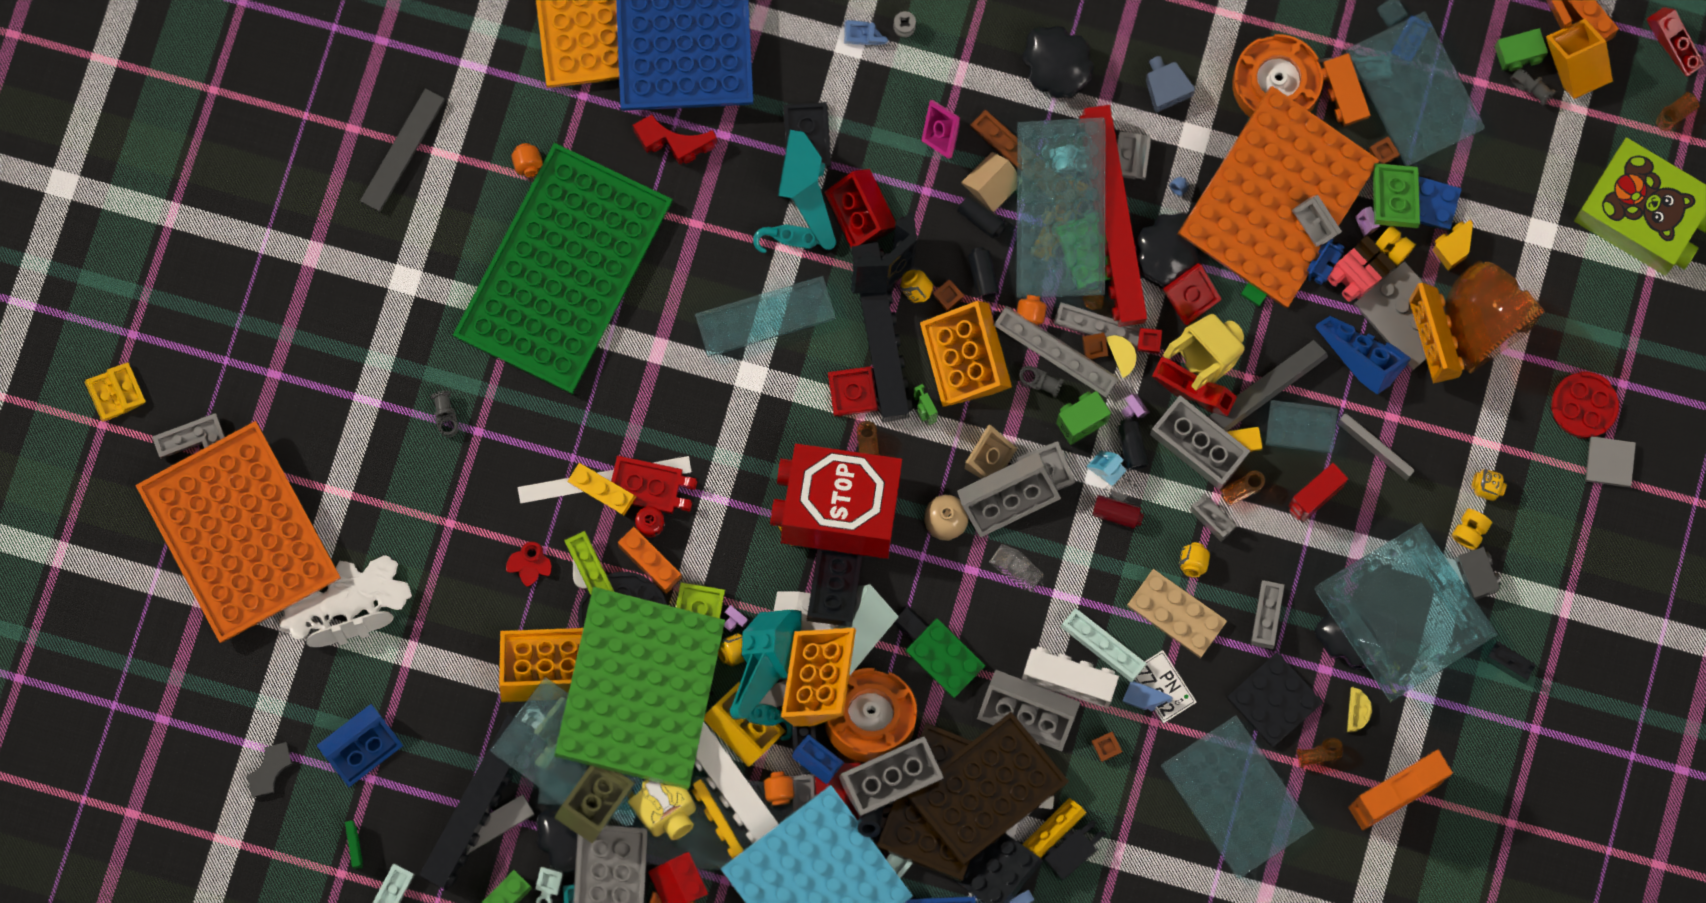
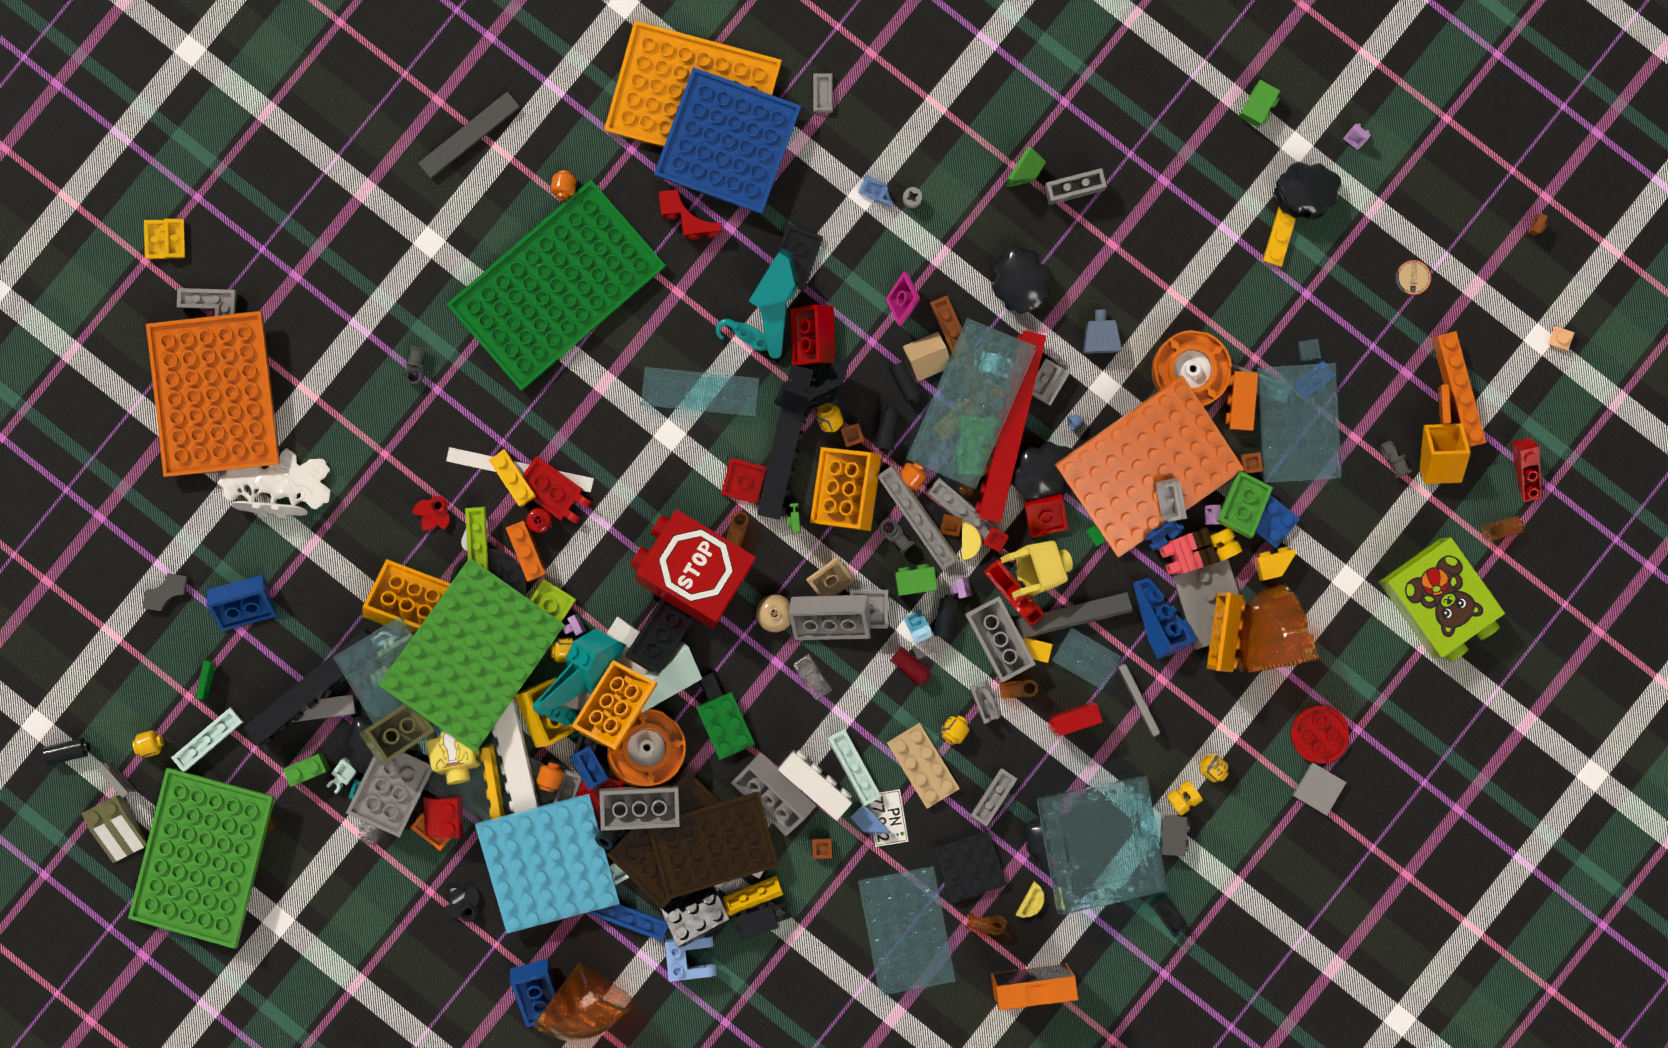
camera: 25 degrees right, 10 degrees up
(1521, 50) = (1399, 425): bright green brick -> none

